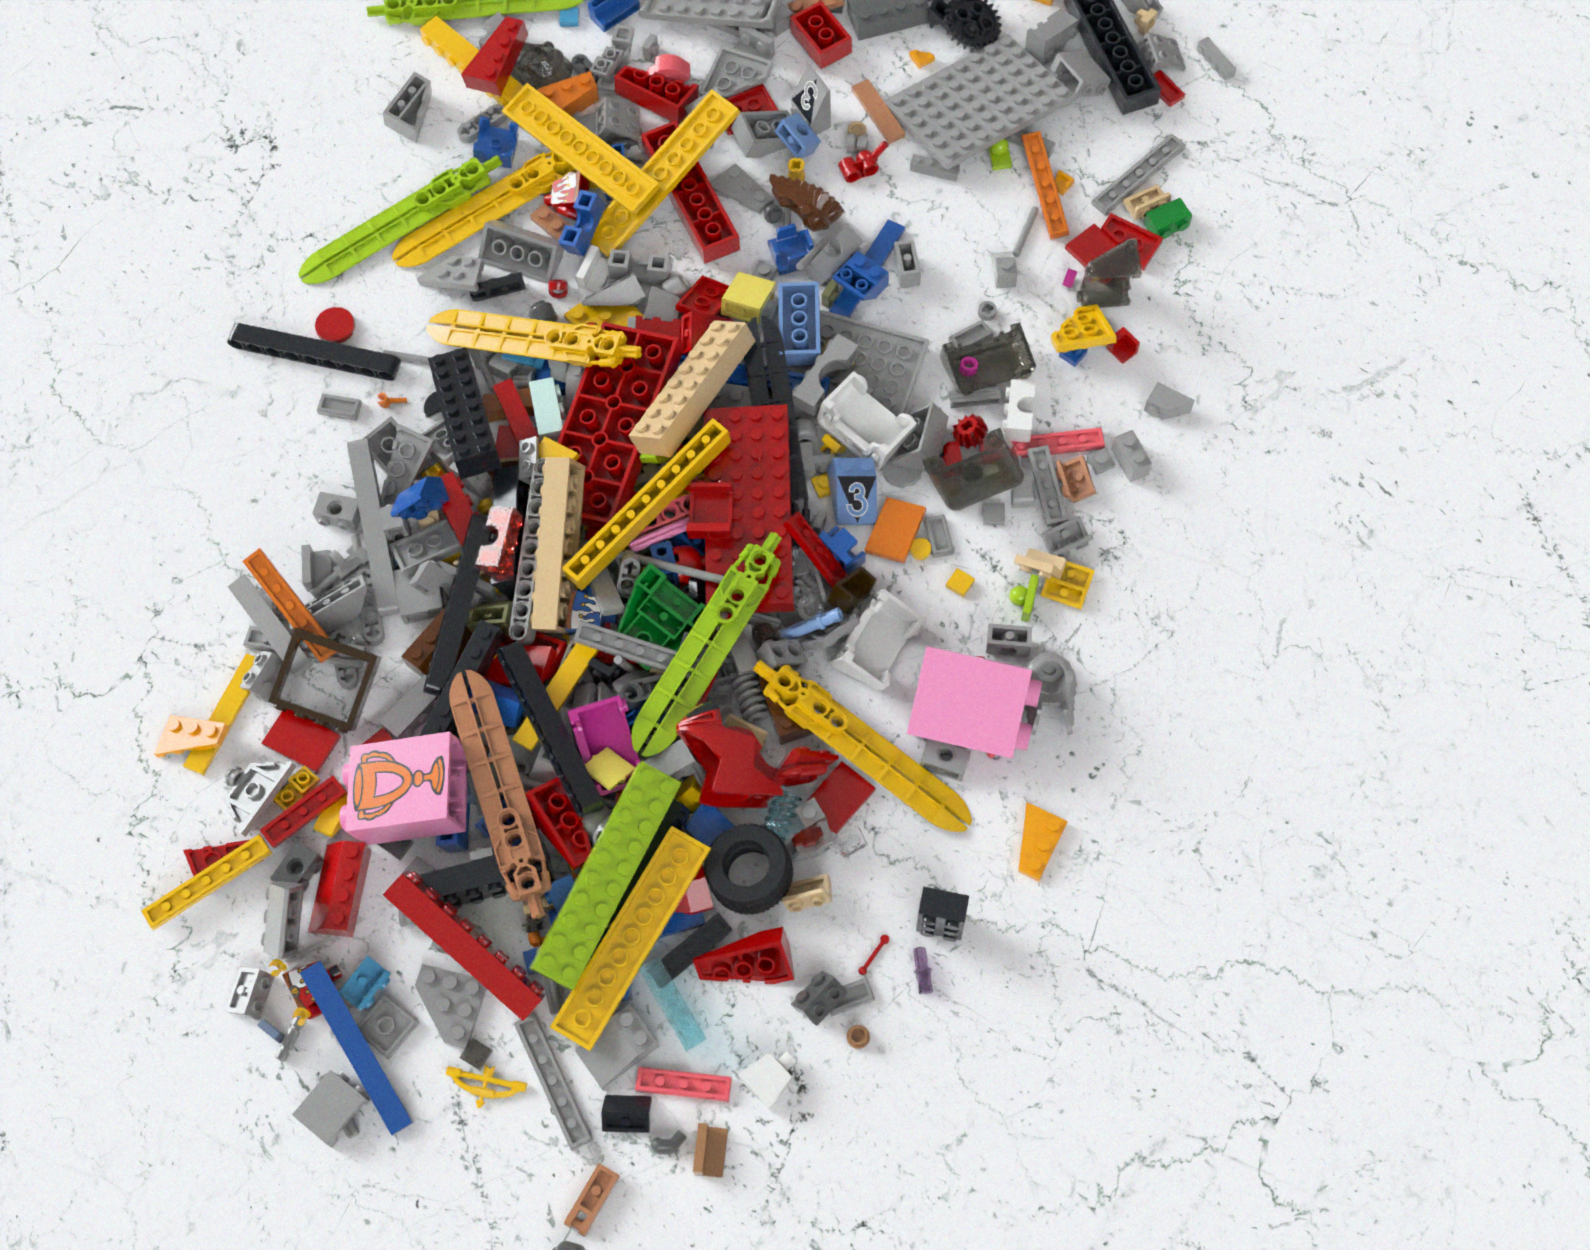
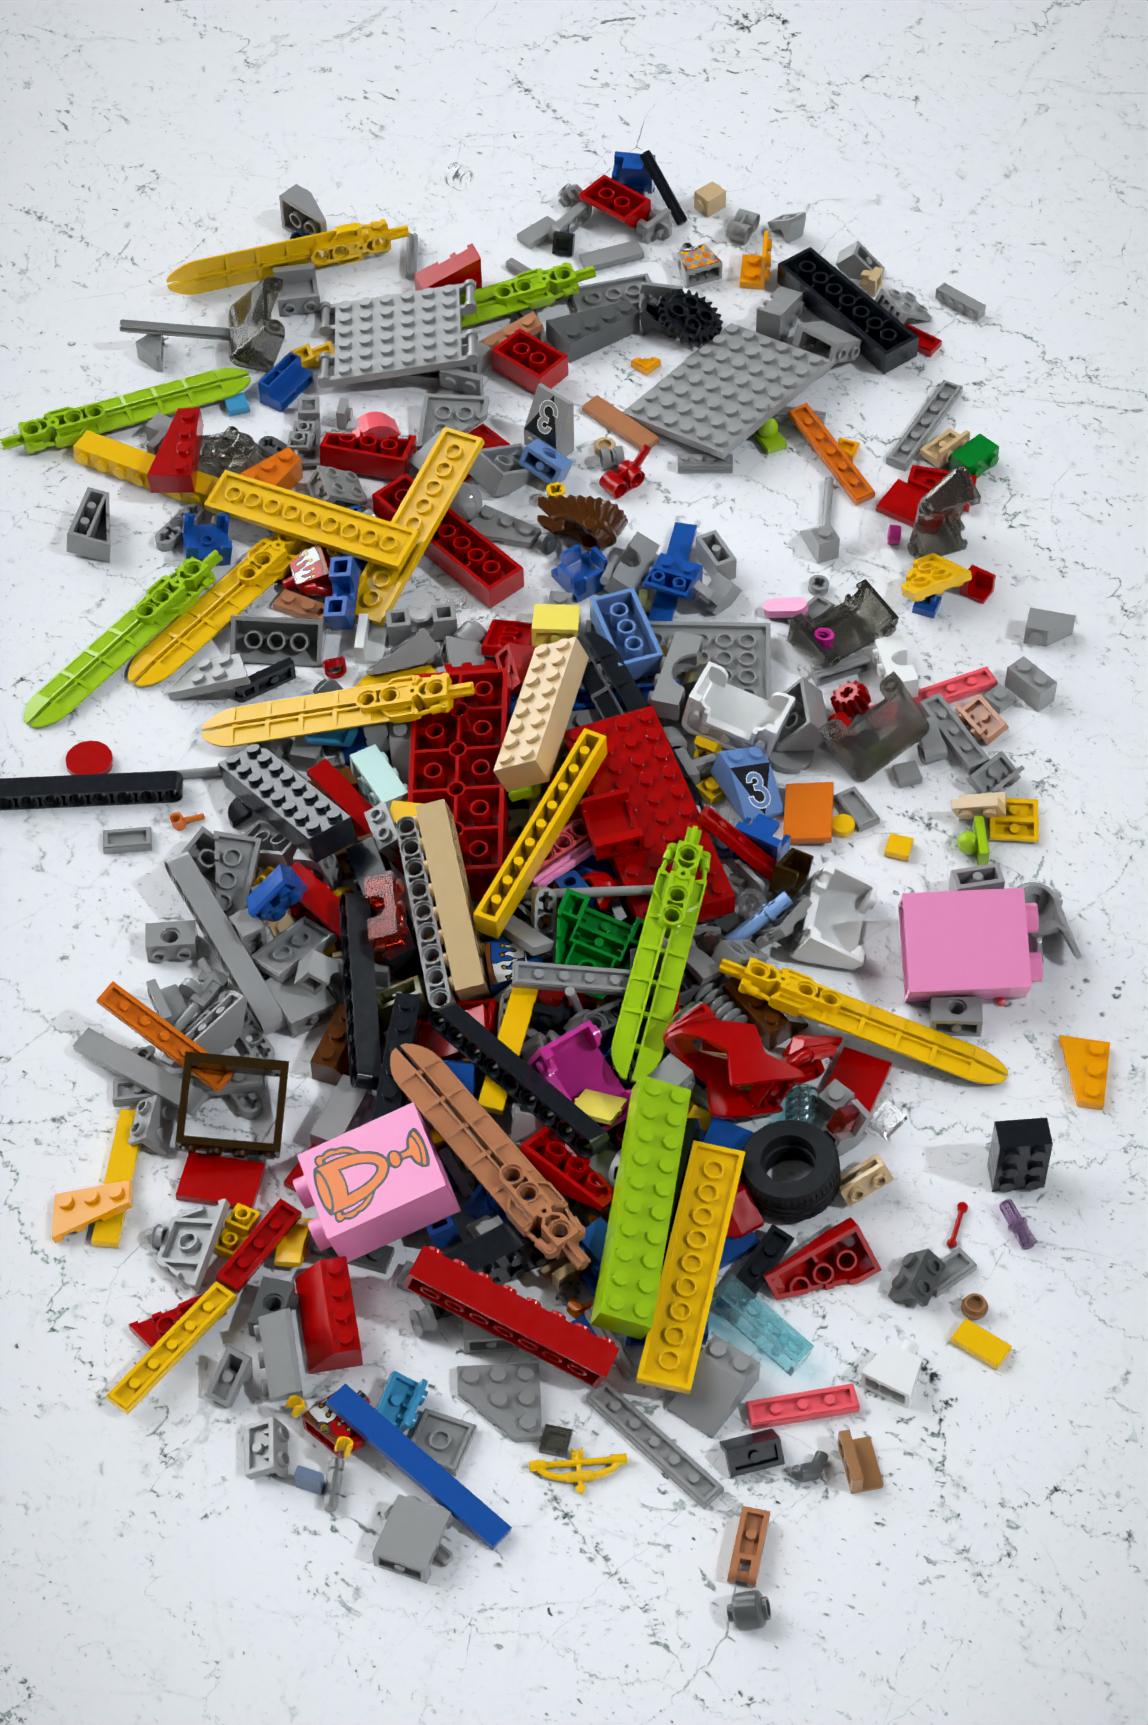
camera: 20 degrees left, 15 degrees down
(240, 922) = (229, 1376): none -> light grey slope
(717, 158) = (467, 502): none -> light grey piece
(851, 1072) = (981, 1344): none -> yellow tile
(897, 299) = (718, 594): none -> light grey brick
(949, 326) = (785, 607): none -> bright pink tile

